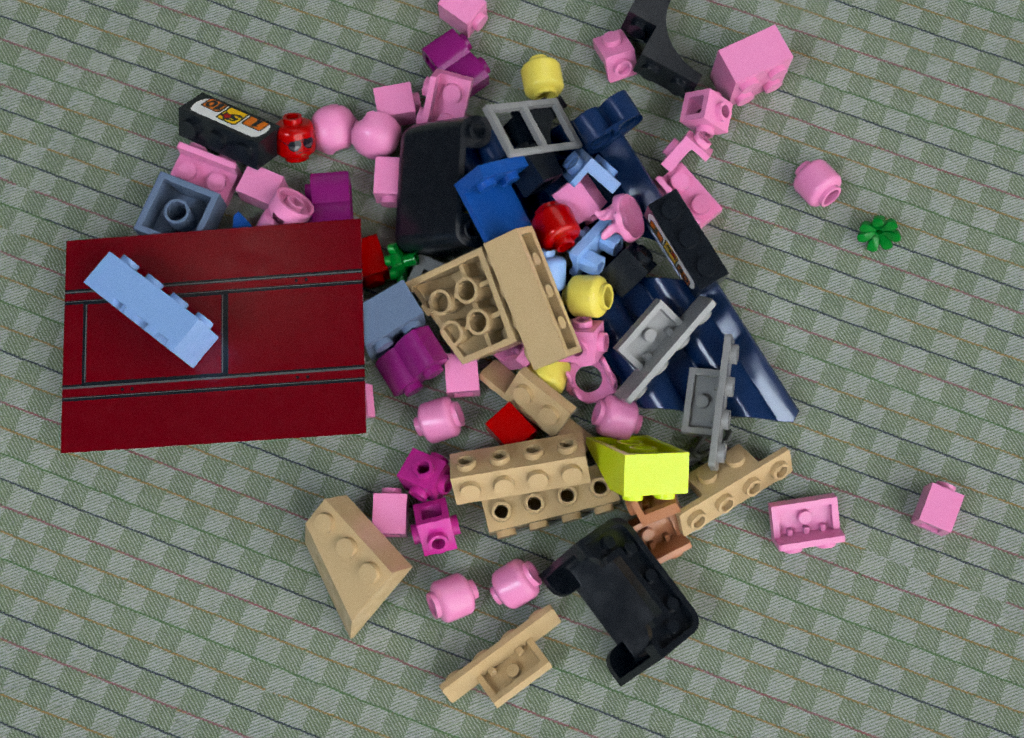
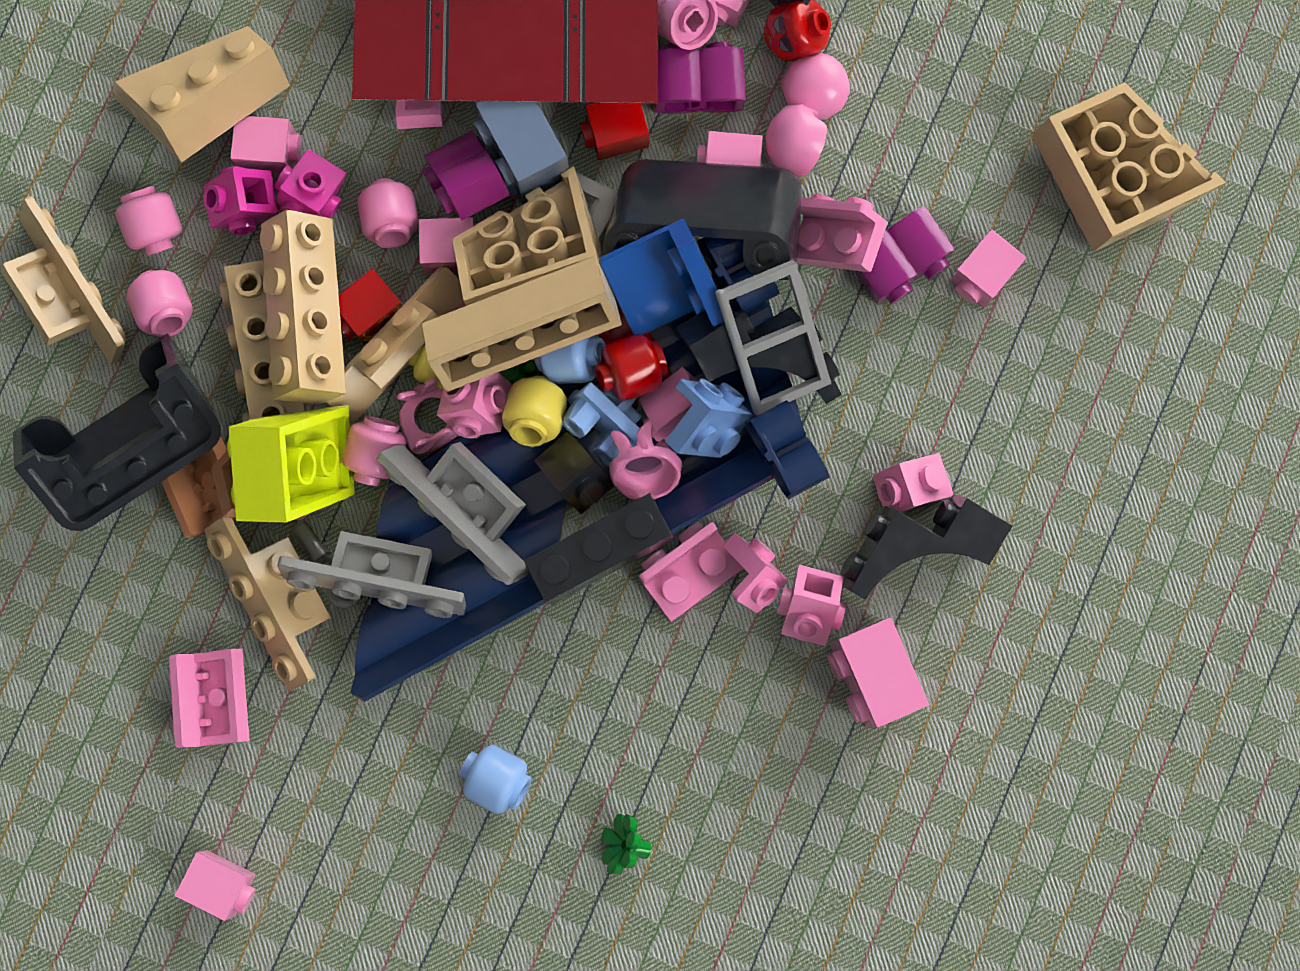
camera: 90 degrees right, 5 degrees up
(398, 102) = (845, 168): bright pink brick -> none
(400, 262) = (608, 165): green plant -> none
(542, 77) = (875, 375): light yellow head -> none
(817, 183) = (701, 760): bright pink head -> none
(844, 318) = (495, 779): none -> light blue head

